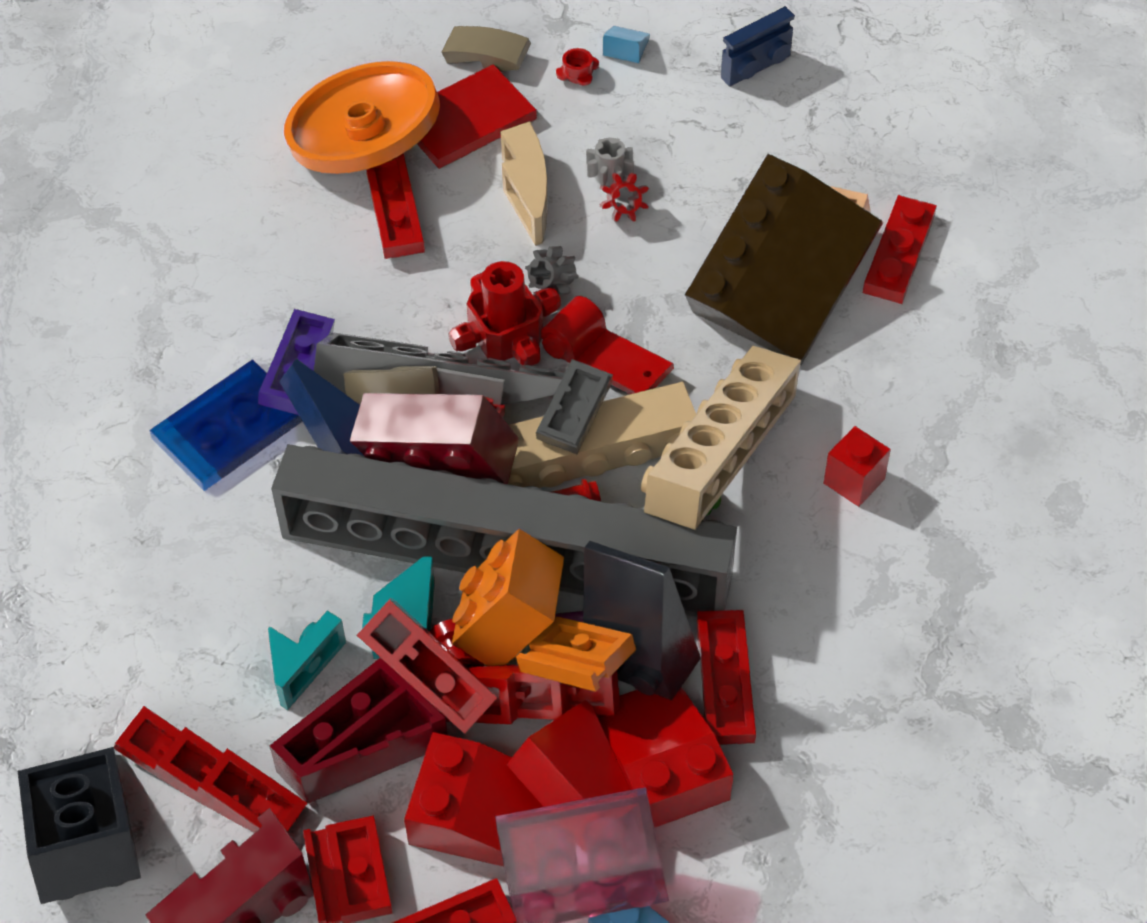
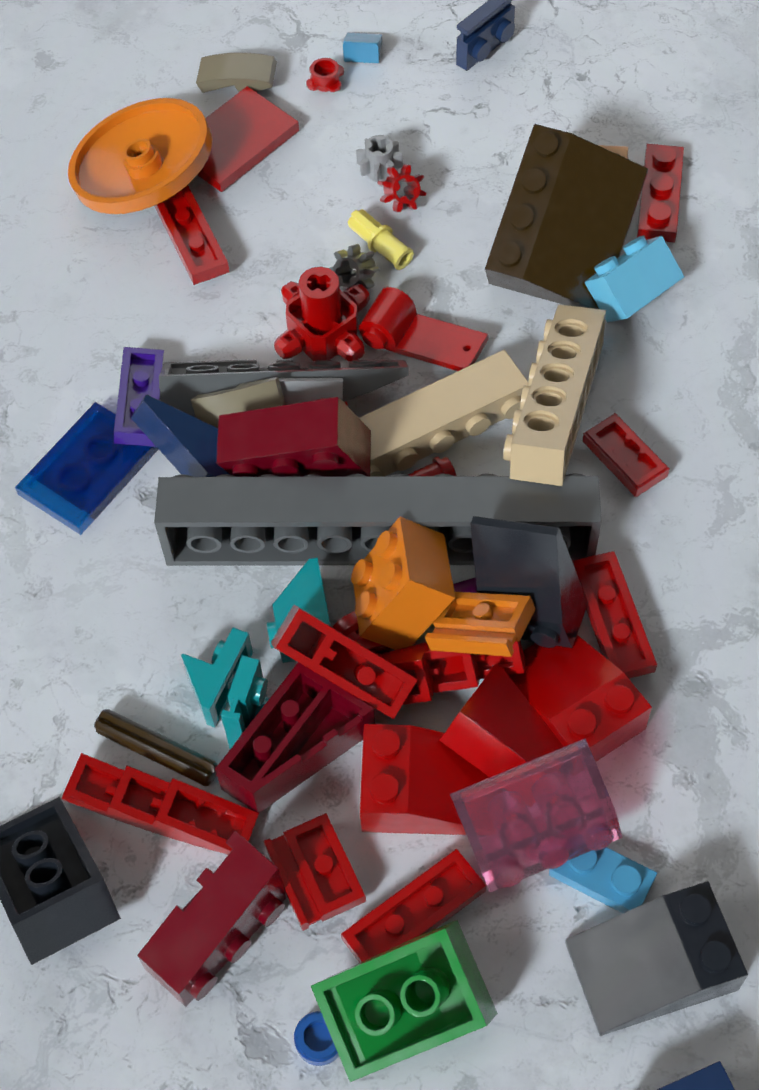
camera: 10 degrees left, 5 degrees up
(220, 716) = (156, 747): none -> dark brown axle
(318, 680) = (245, 698): none -> teal plate
(525, 178) = (306, 186): tan slope -> none
(574, 406) = (414, 391): dark grey plate -> none
(589, 246) = (380, 239): none -> light yellow axle
(785, 514) = (625, 455): none -> red plate
(841, 333) = (634, 278): none -> medium azure brick
(856, 466) = (679, 398): red brick -> none

